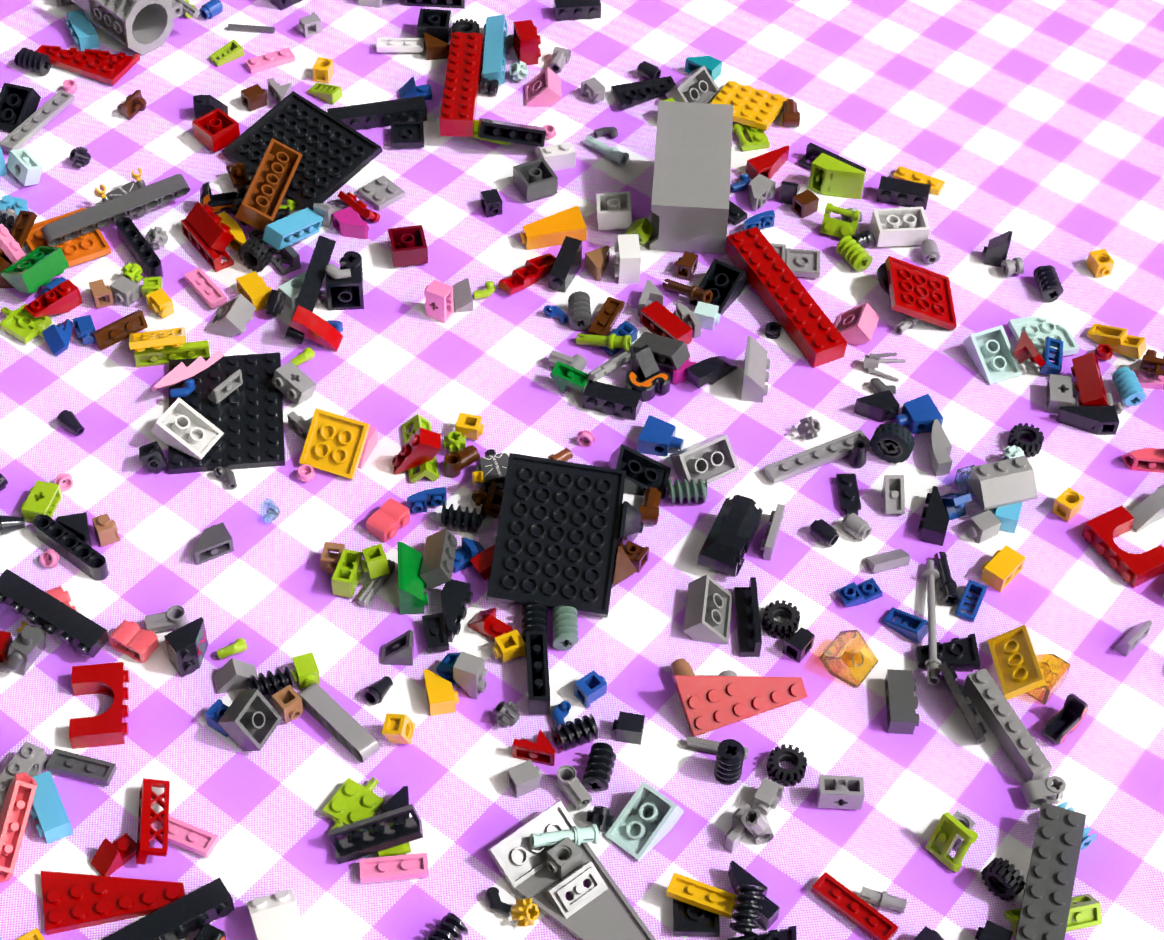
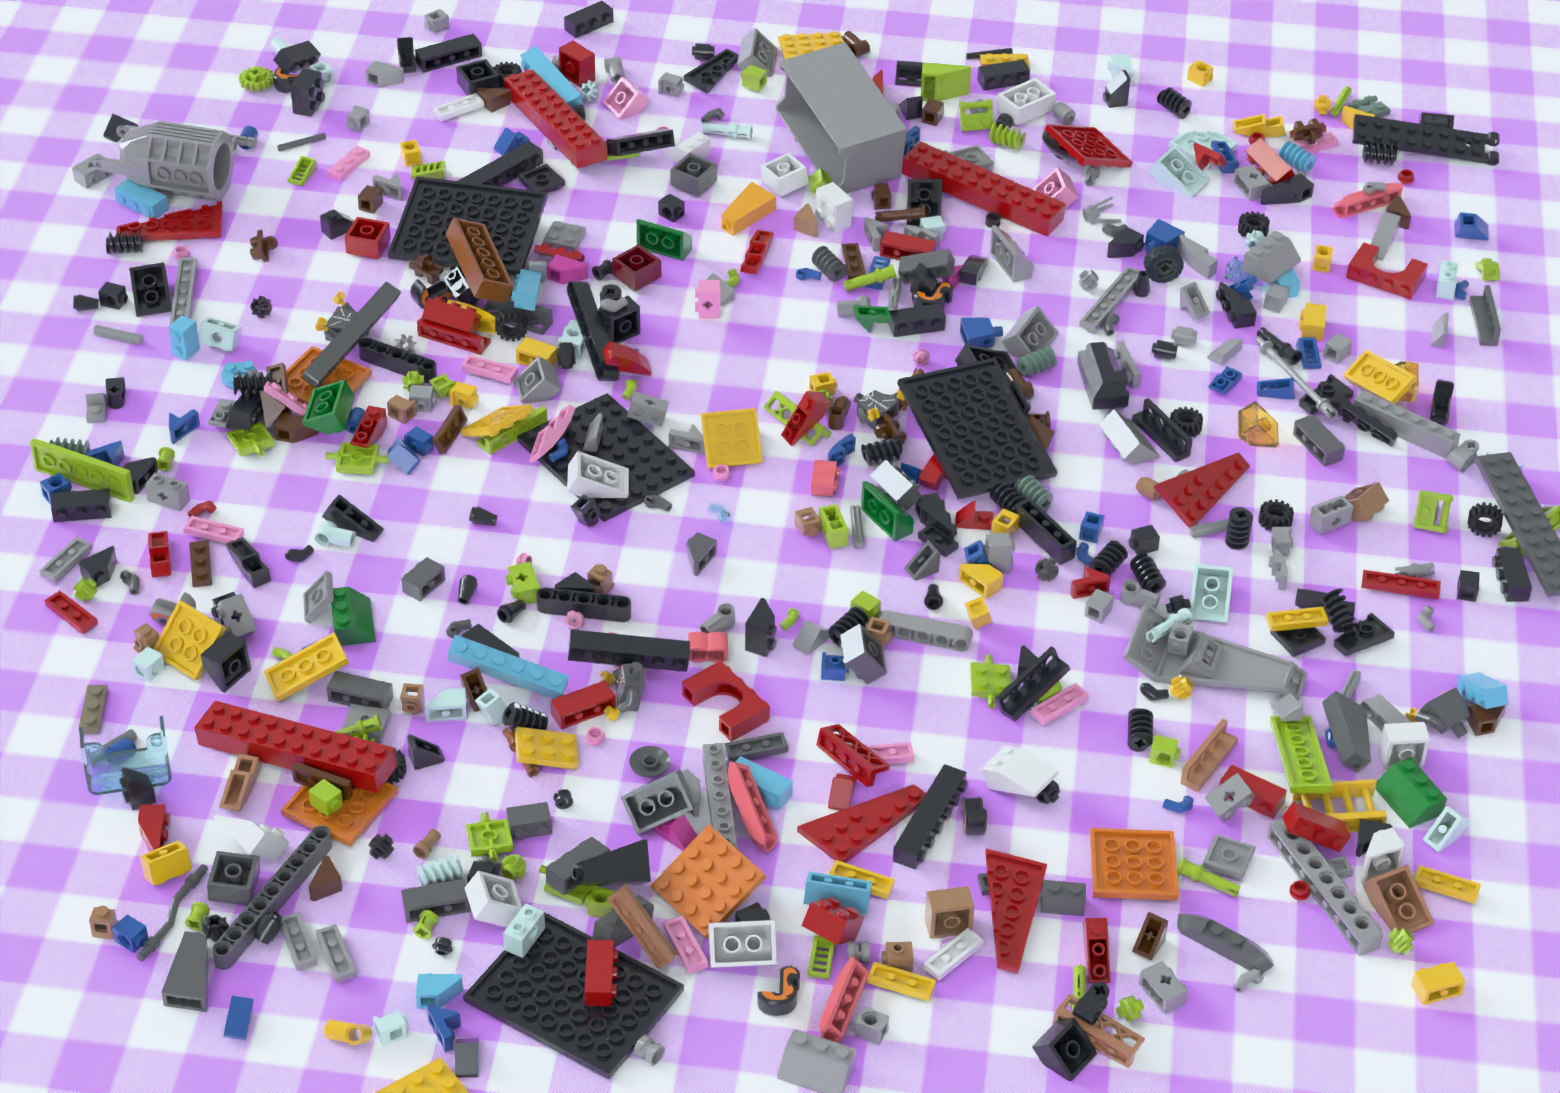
camera: 30 degrees left, 5 degrees down
(375, 561) = (852, 505): lime brick -> none
(380, 236) = (602, 270): none -> black bush
(455, 229) = (663, 240): none -> green slope
(566, 264) = (785, 231): black slope -> none
(712, 65) = (739, 30): teal slope -> none
(757, 826) = (1294, 559): light grey piece -> none
(794, 480) = (1108, 323): none -> dark grey arm
(798, 644) = (1214, 433): black brick -> none
(848, 493) = (1156, 316): black hinge -> none
(889, 794) = (1367, 501): none -> medium nougat slope
(895, 164) = (974, 55): none -> black bar
(1004, 609) = (1337, 348): none -> light grey brick
(1012, 266) = (1137, 100): light grey wheel -> none
(1024, 228) = (1118, 63): none -> light aqua slope

